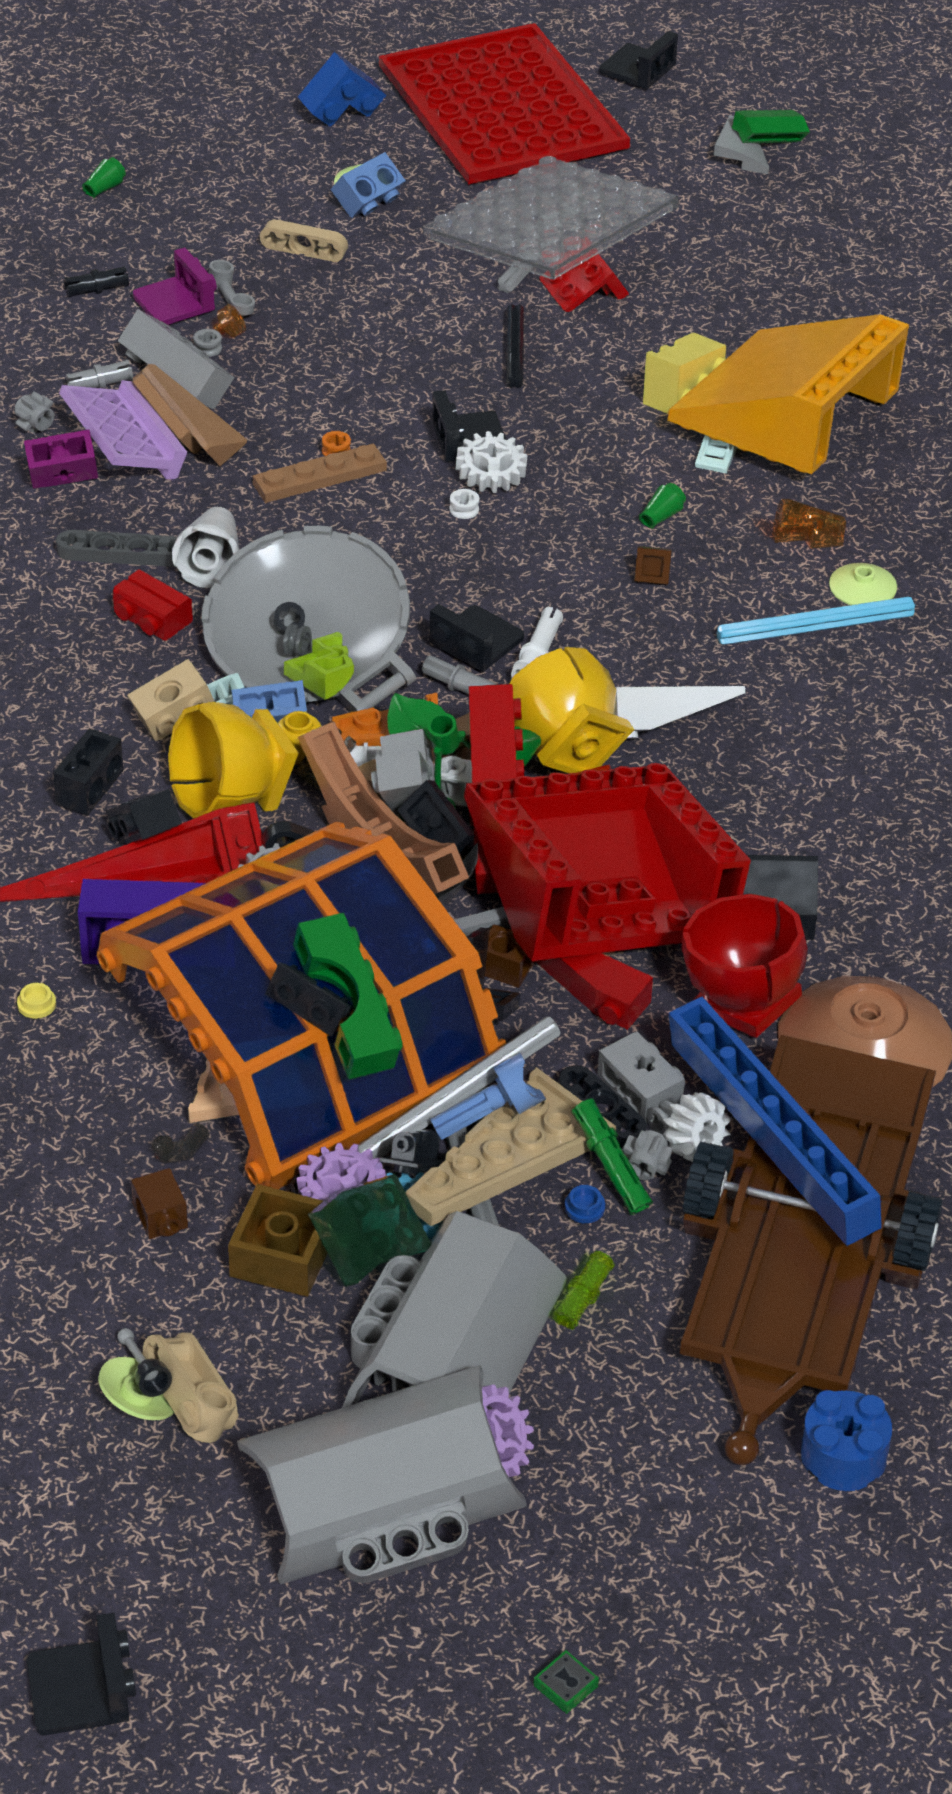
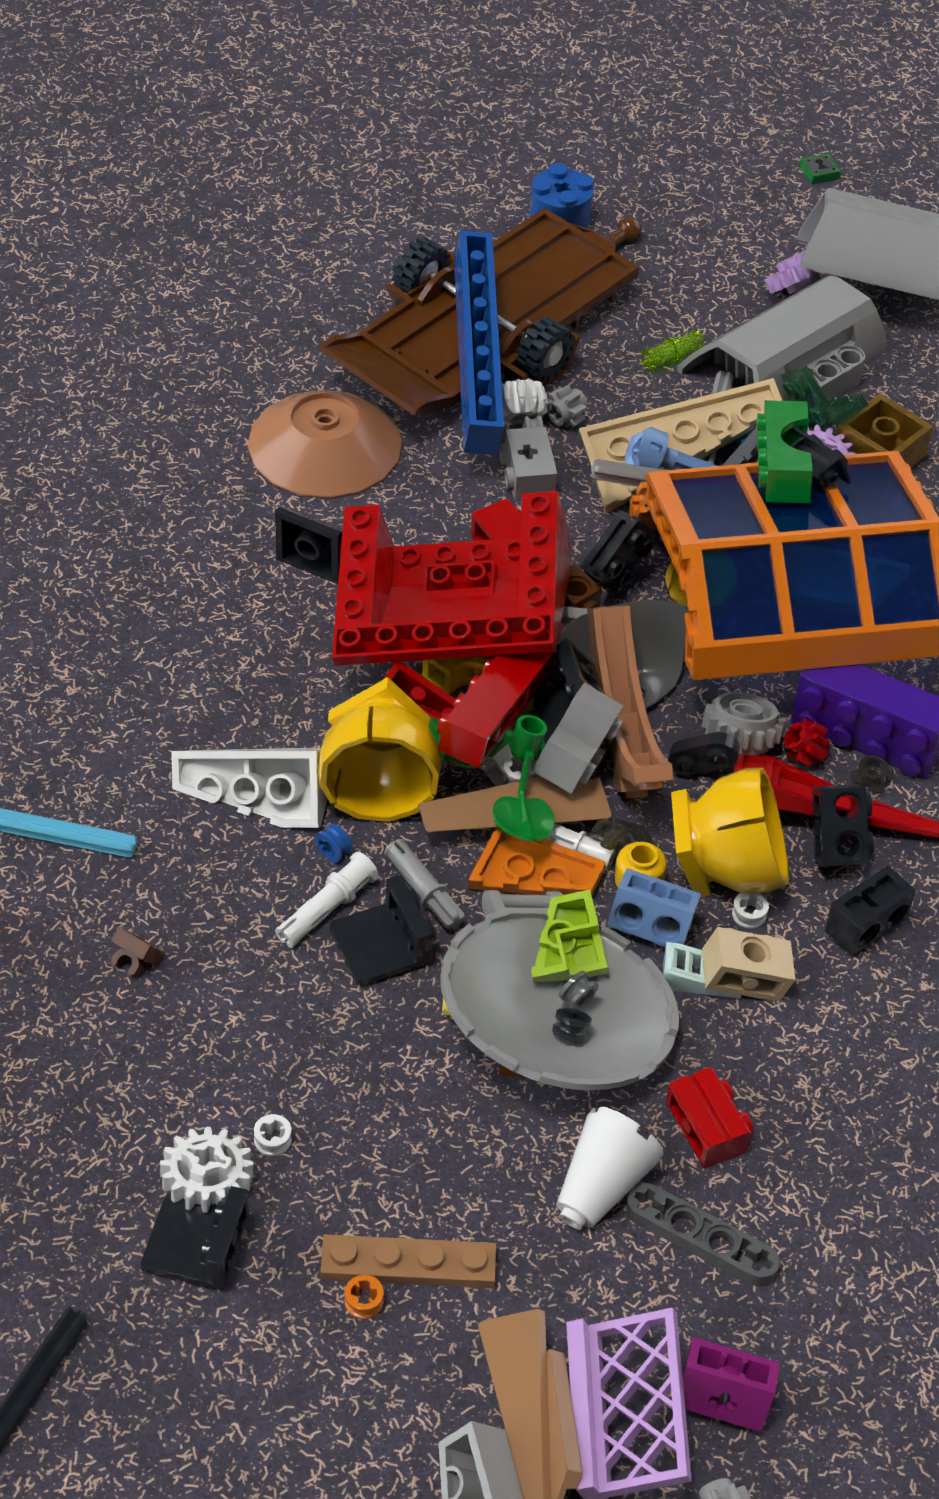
camera: 155 degrees left, 5 degrees up
(585, 1204) = (632, 401): blue plate -> none
(601, 1093) = (576, 453): black beam -> none
(617, 1166) = (607, 408): green pin -> none
(664, 504) = (60, 1029): green cone -> none
(745, 960) = (399, 472): red plate -> none

